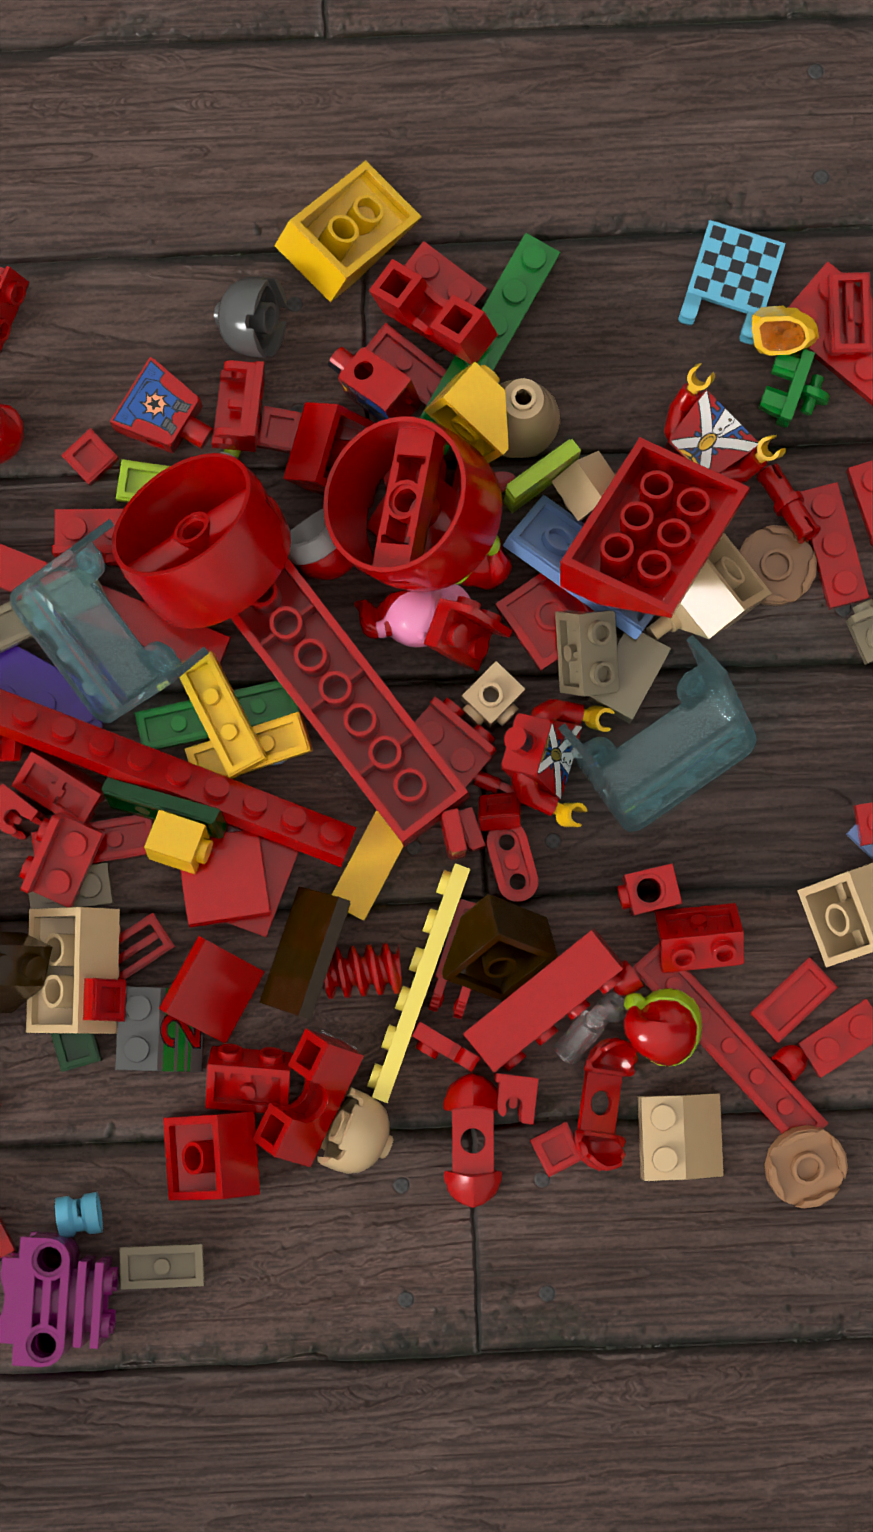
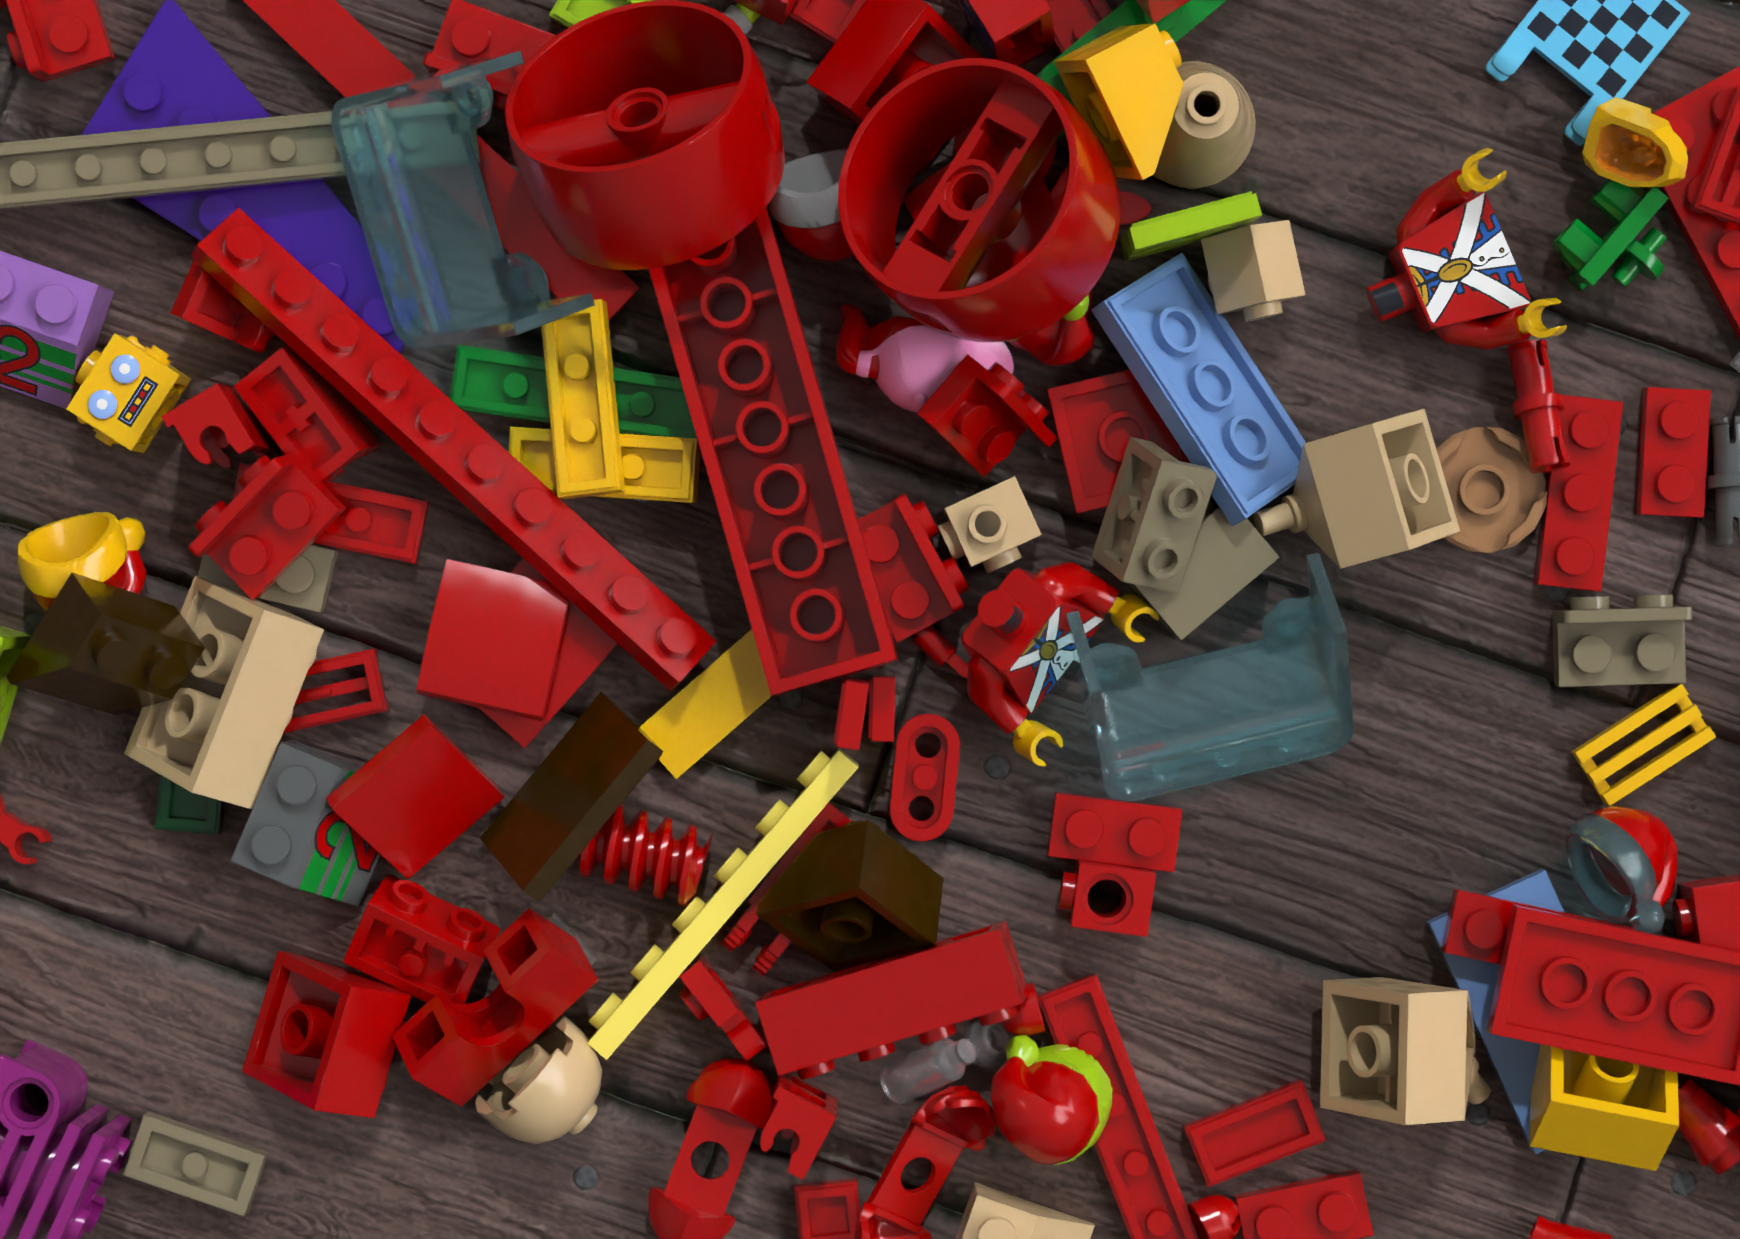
camera: 20 degrees right, 5 degrees up
(79, 1215) = (103, 1045): medium azure wheel -> none
(104, 999) = (250, 757): red tile -> none
(148, 802) = (445, 506): dark green tile -> none
(178, 842) = (445, 566): yellow brick -> none
(499, 811) = (934, 698): red tile -> none
(638, 851) = (1114, 832): none -> red plate
(650, 532) = (1318, 380): red slope -> none
(700, 937) = (1155, 992): red bracket -> none

